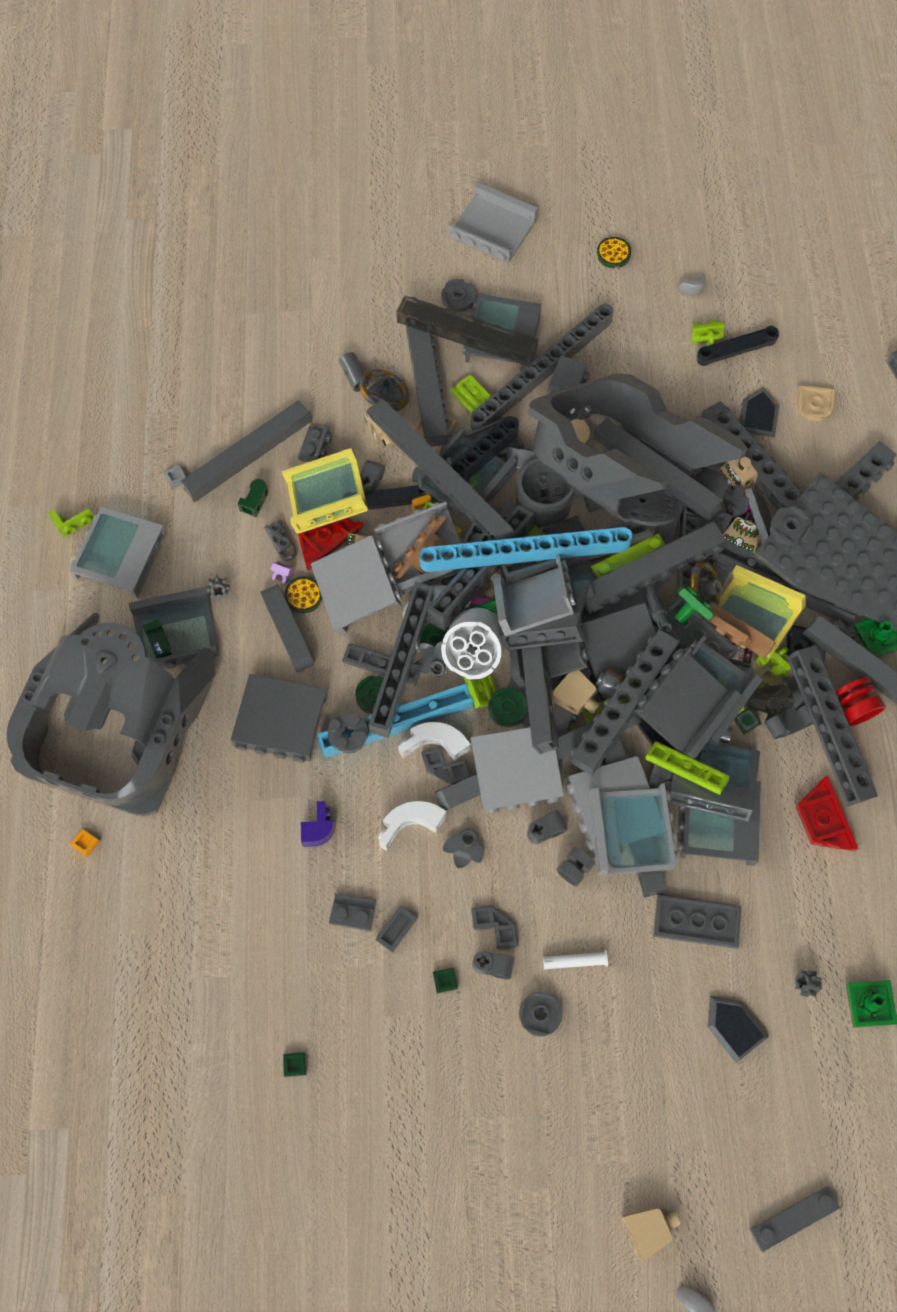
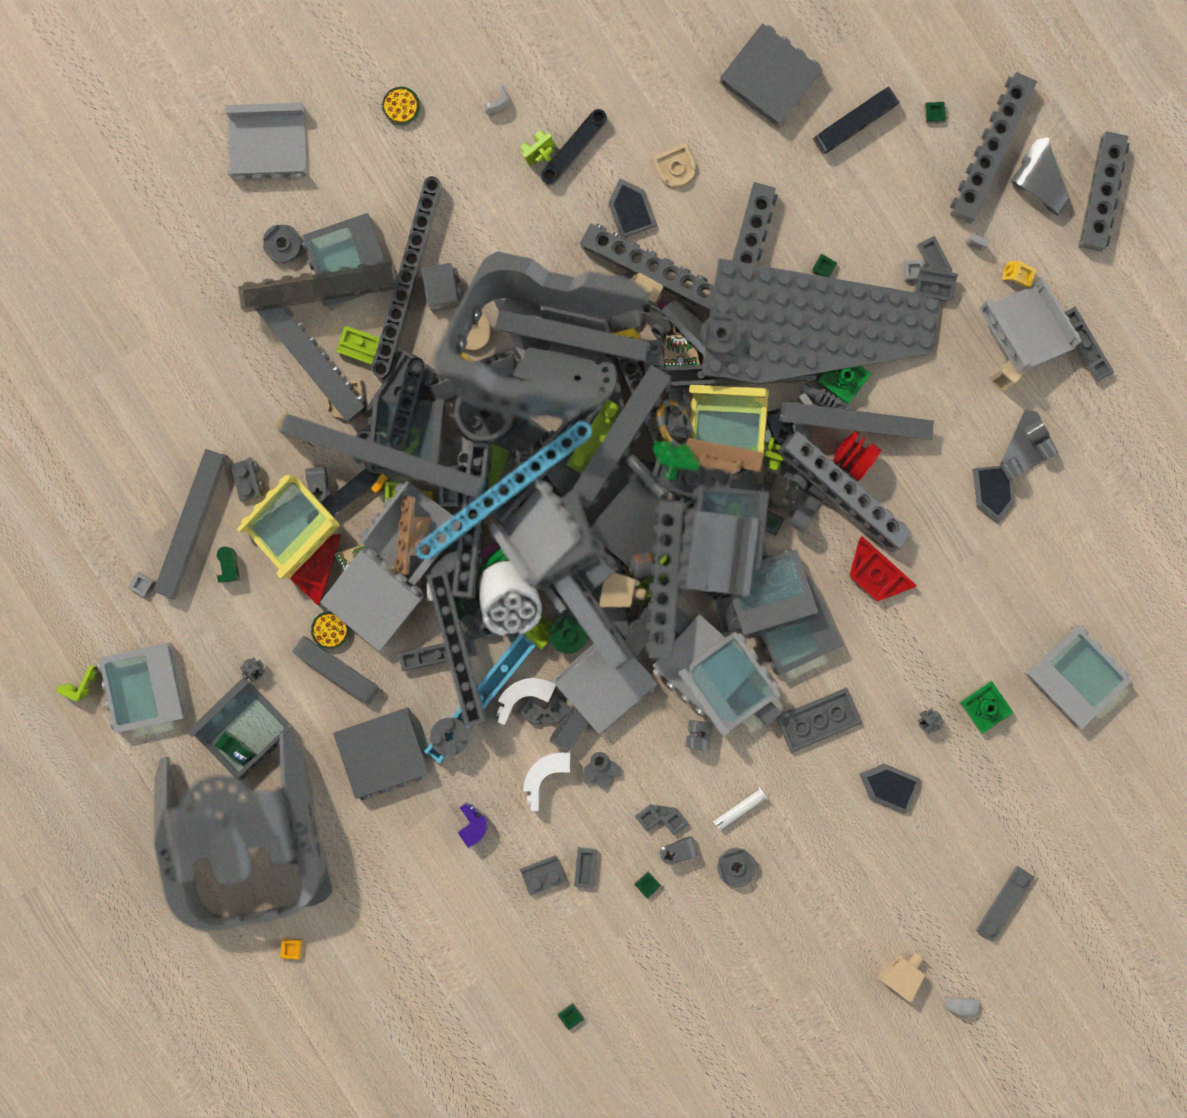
camera: 30 degrees left, 20 degrees up
(282, 569) = (297, 618): lavender tile -> none
(283, 543) = (281, 592): dark grey piece -> none
(352, 370) = (237, 385): dark grey pin -> none
(367, 693) = (442, 685): dark green tile -> none
(384, 388) = (277, 390): dark grey piece -> none
(549, 825) = (660, 712): dark grey piece -> none
(687, 767) = (746, 605): lime plate -> none

